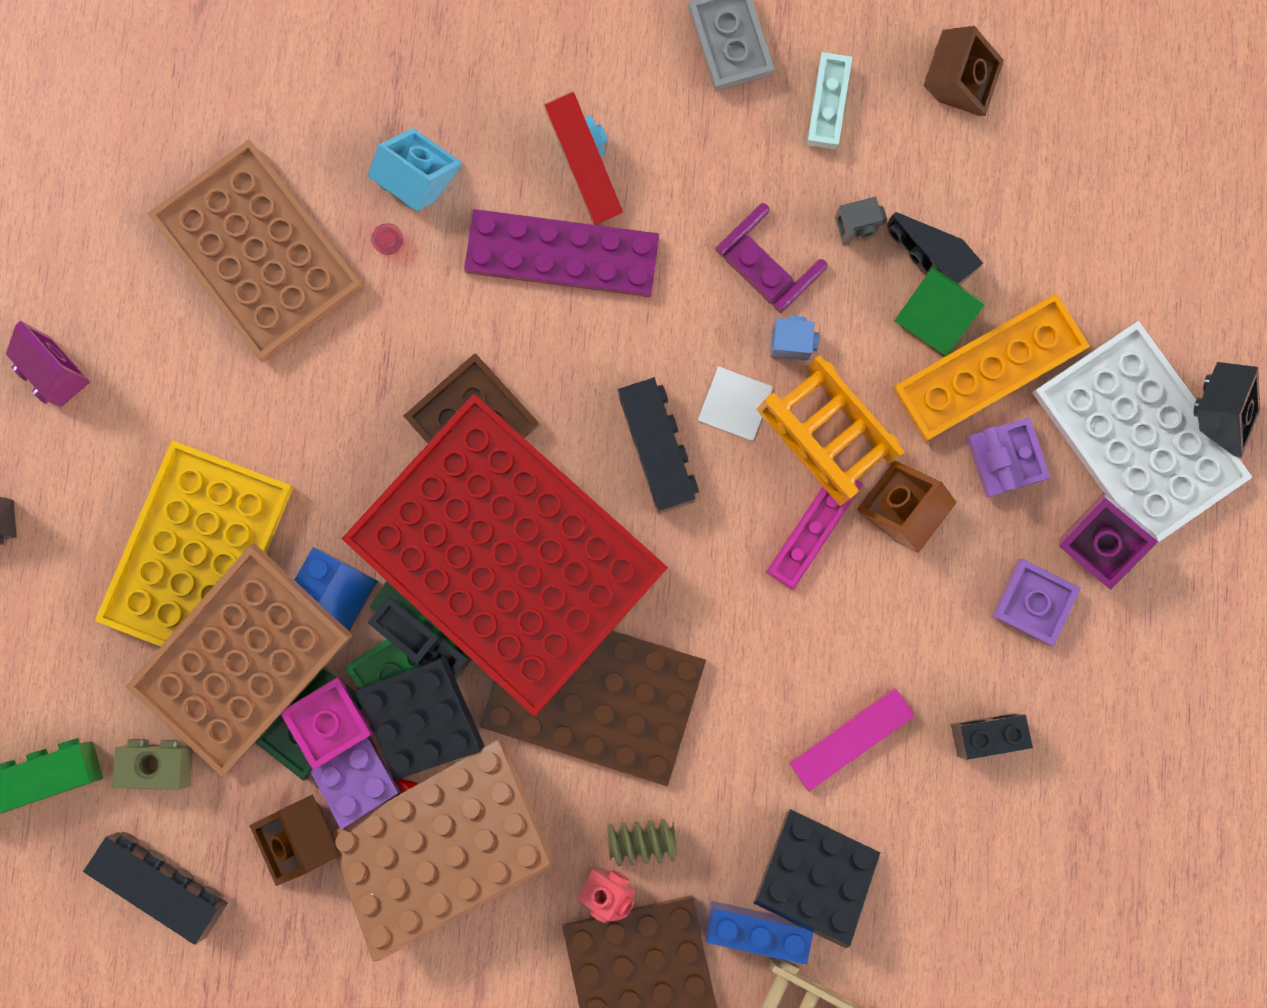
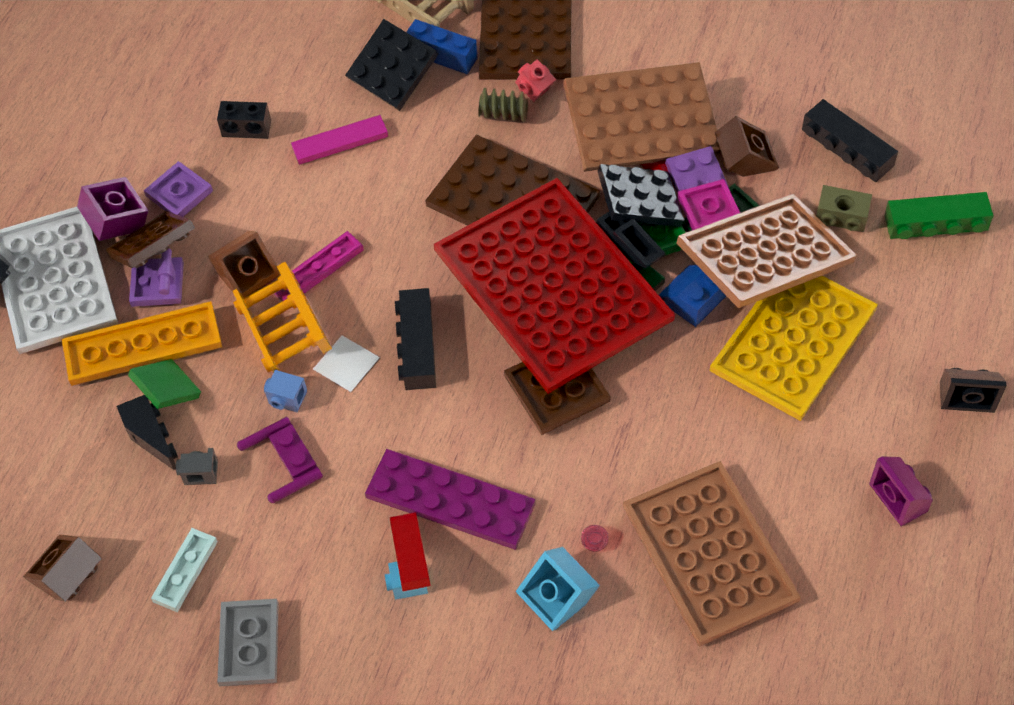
camera: 160 degrees left, 25 degrees down
(1038, 501) = (150, 239): none -> reddish brown plate

